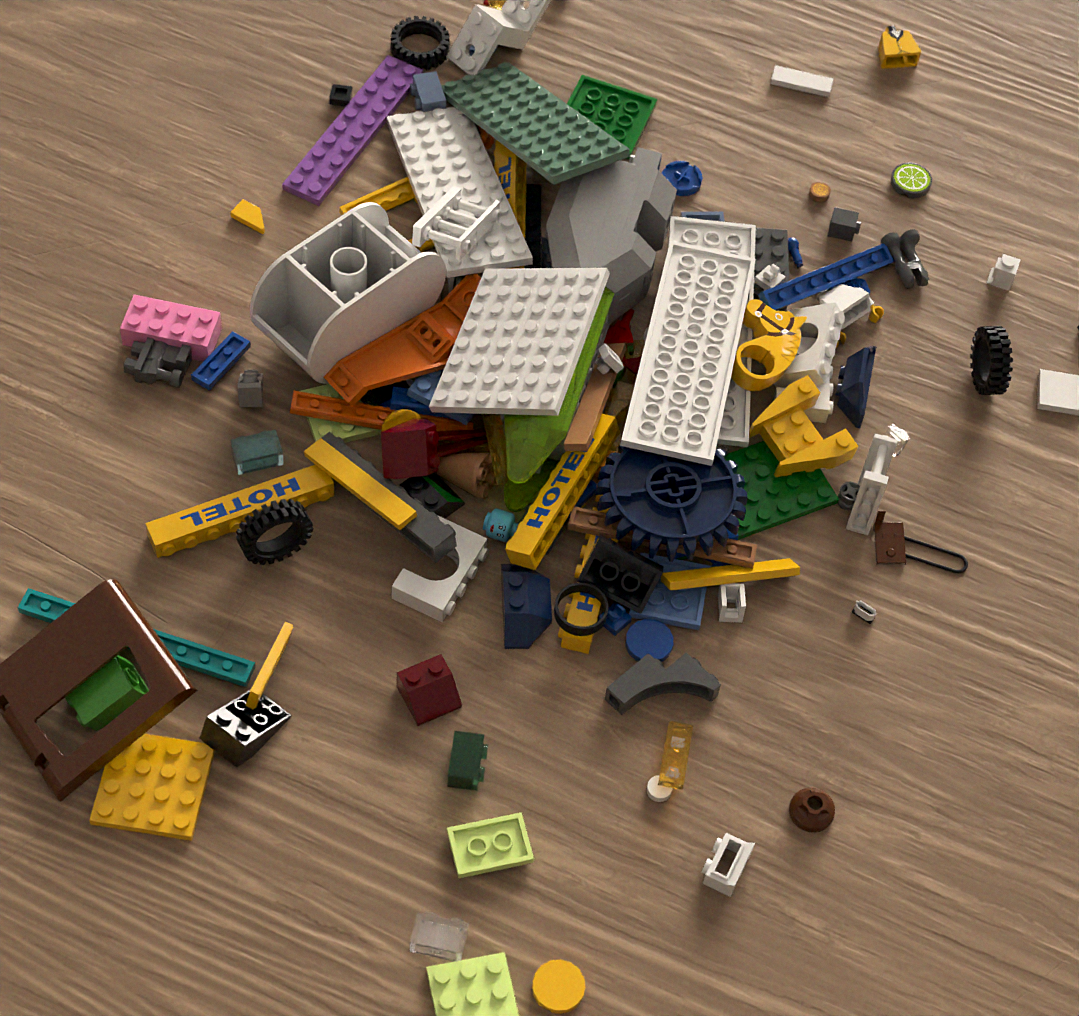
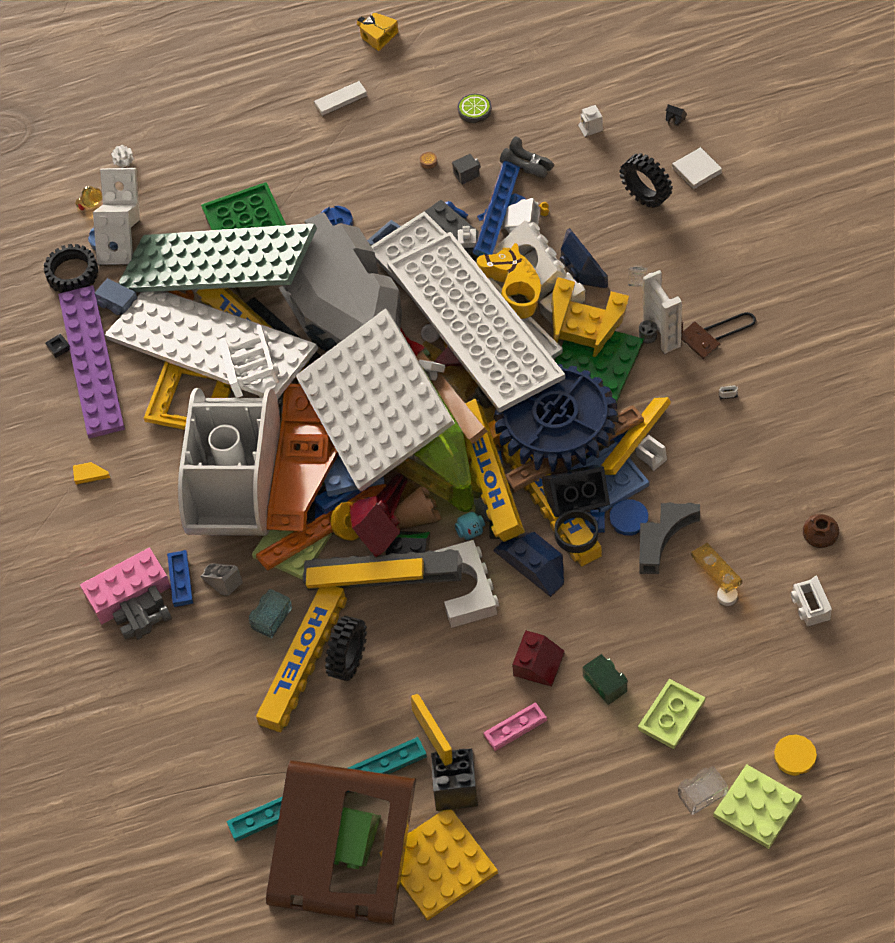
camera: 30 degrees left, 0 degrees up
(346, 730) = (515, 726): none -> bright pink tile

